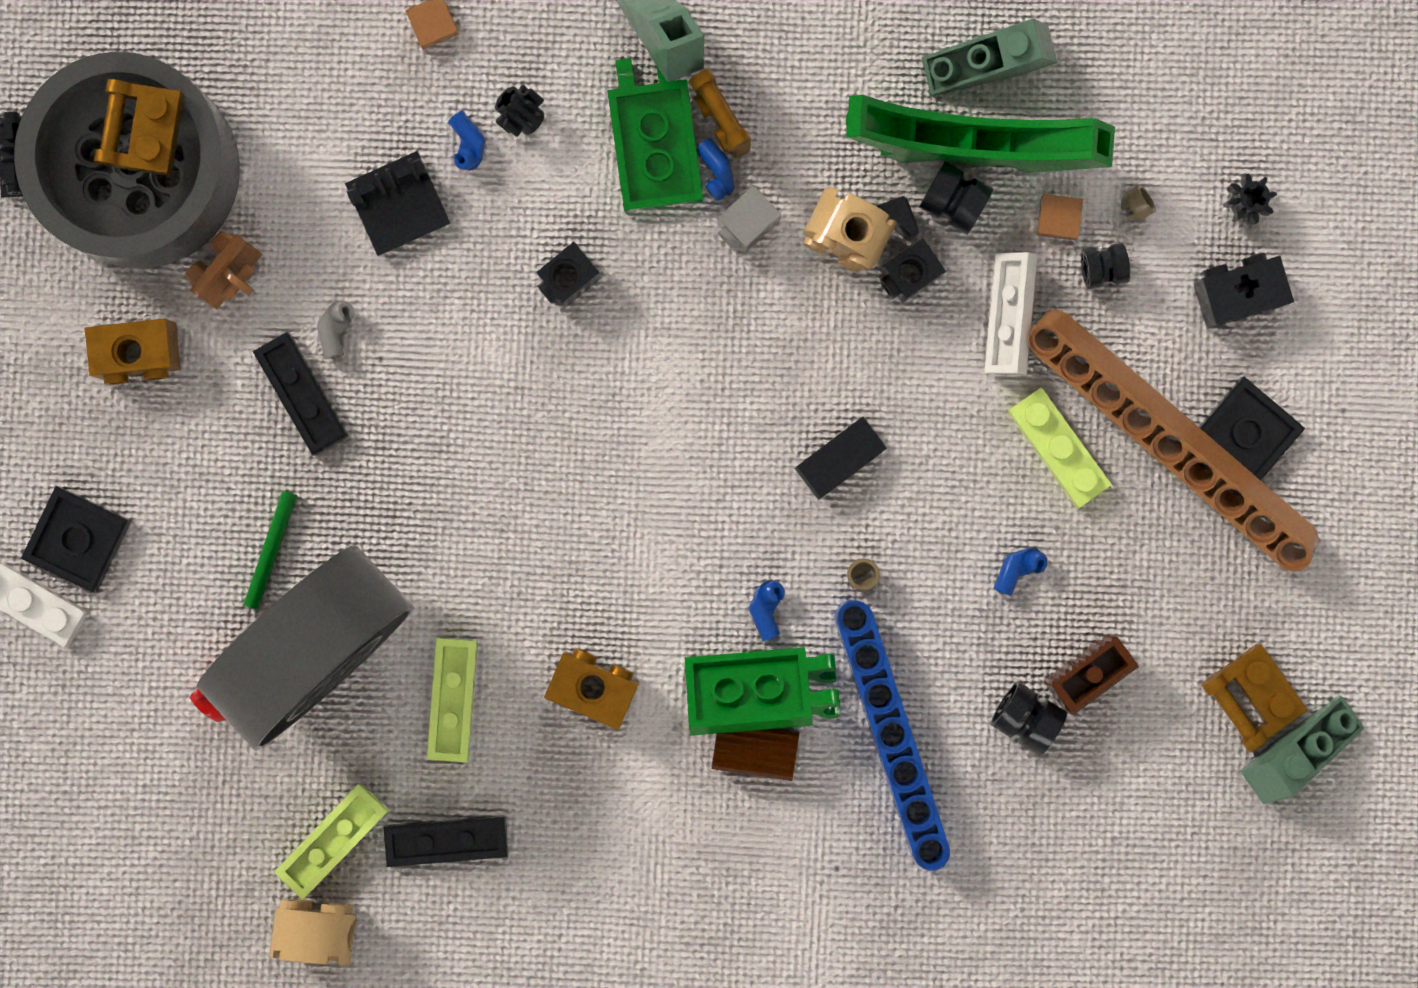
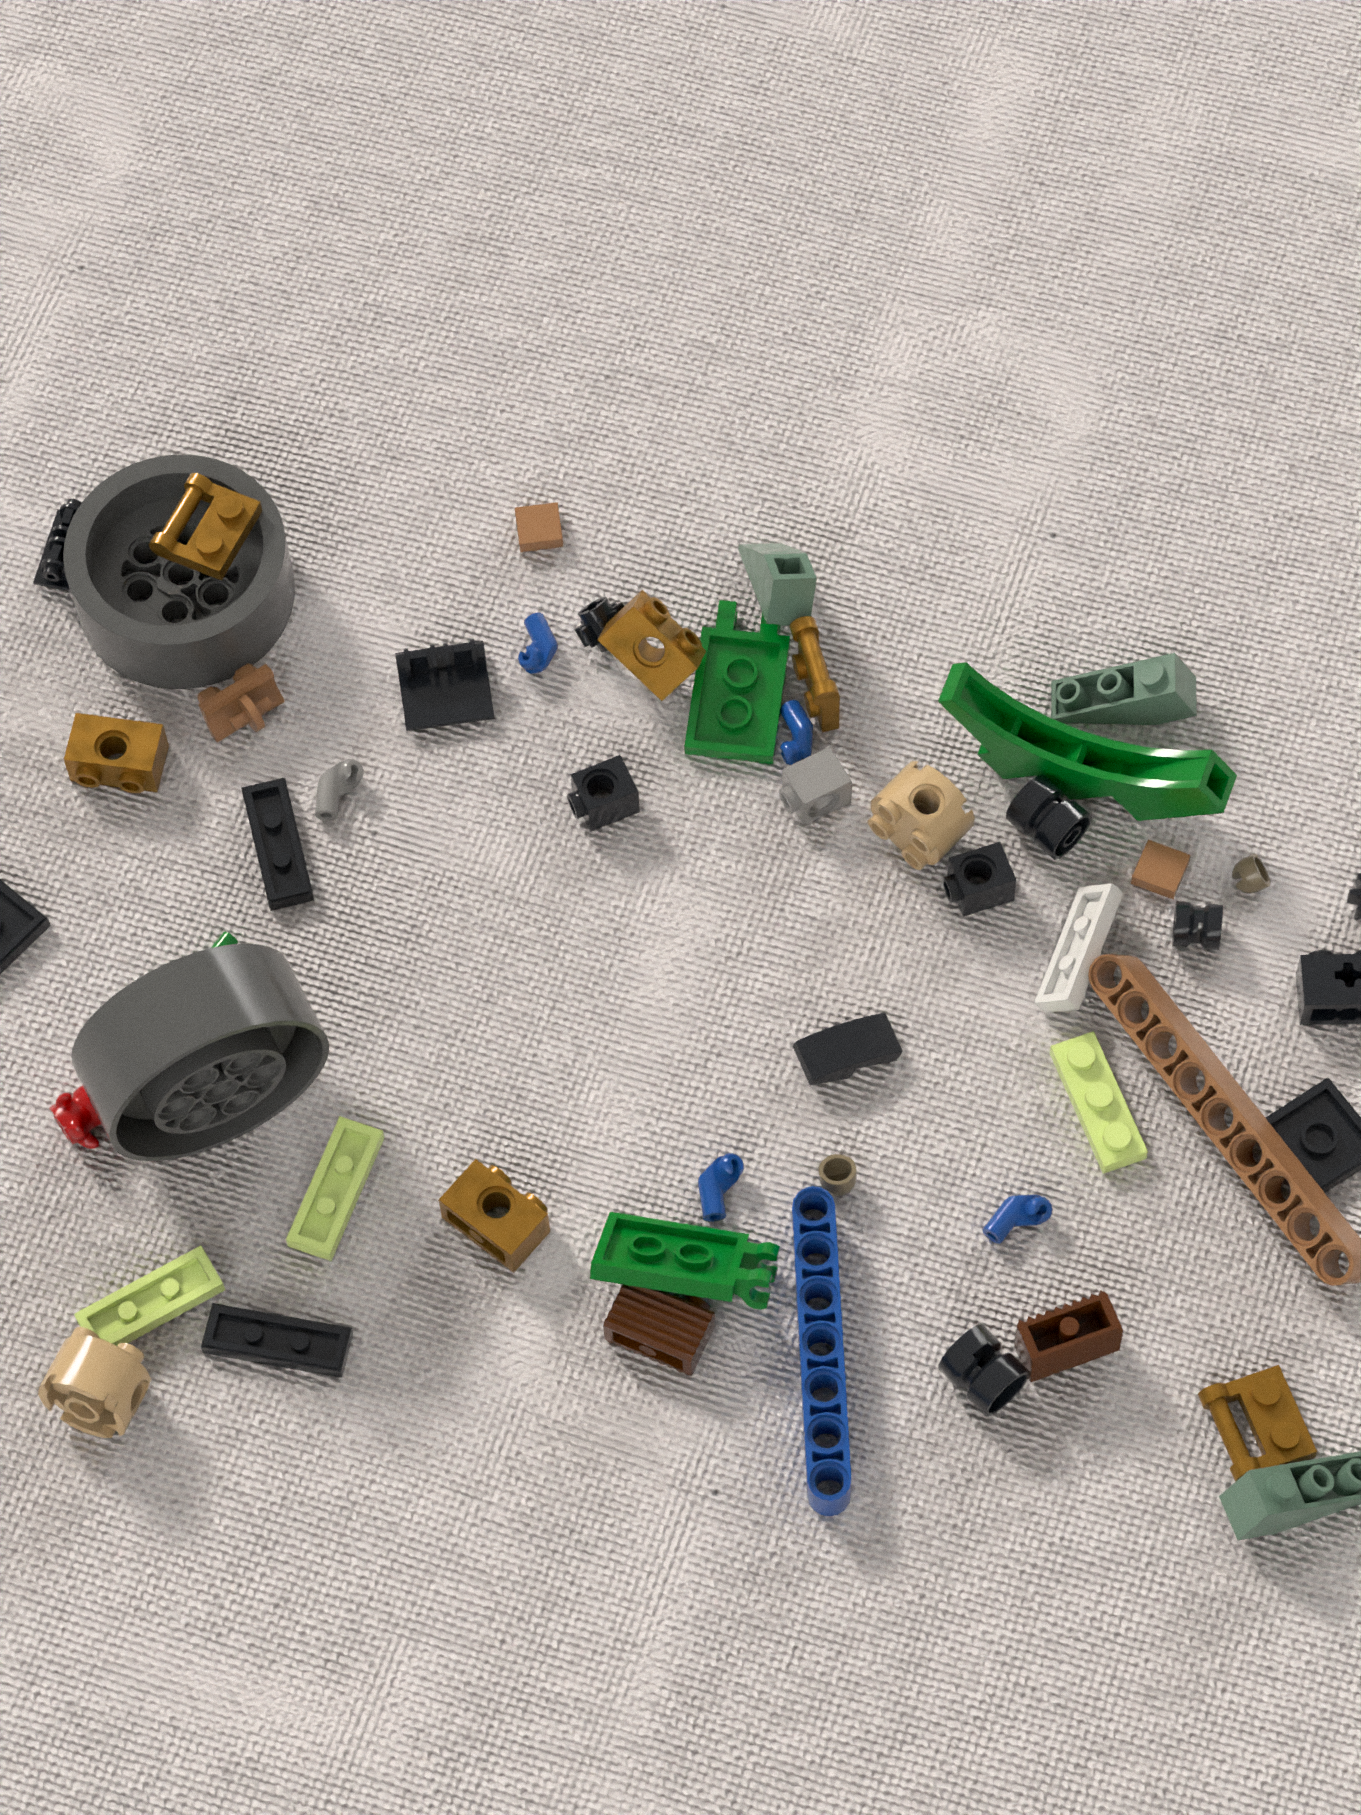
camera: 20 degrees right, 25 degrees down
(571, 127) = (656, 668): none -> pearl gold brick
(901, 212) = (985, 827): black slope -> none

